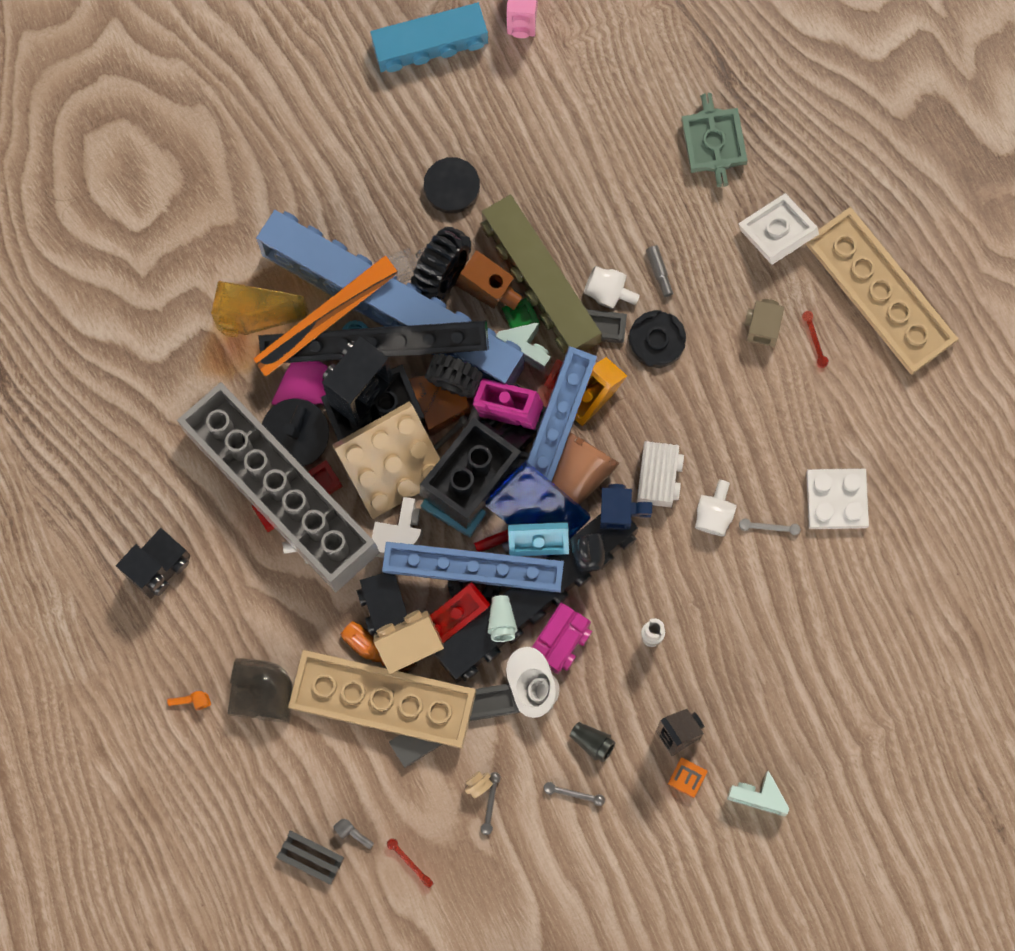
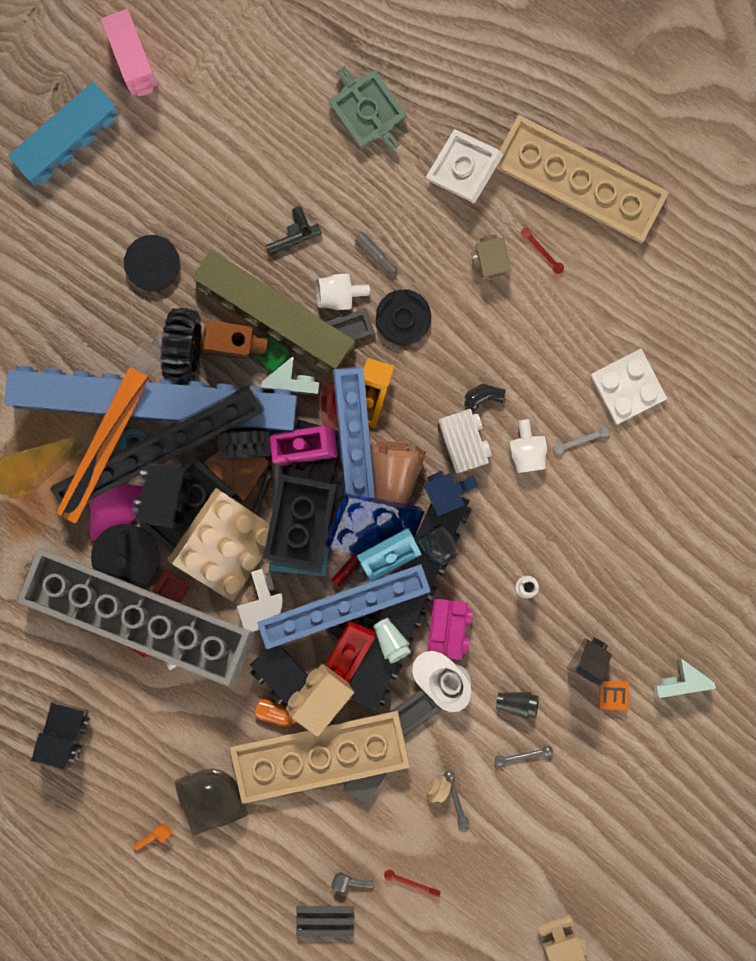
camera: 30 degrees left, 10 degrees up
(595, 218) = (295, 232): none -> pearl dark grey hose
(697, 439) = (481, 393): none -> black arm

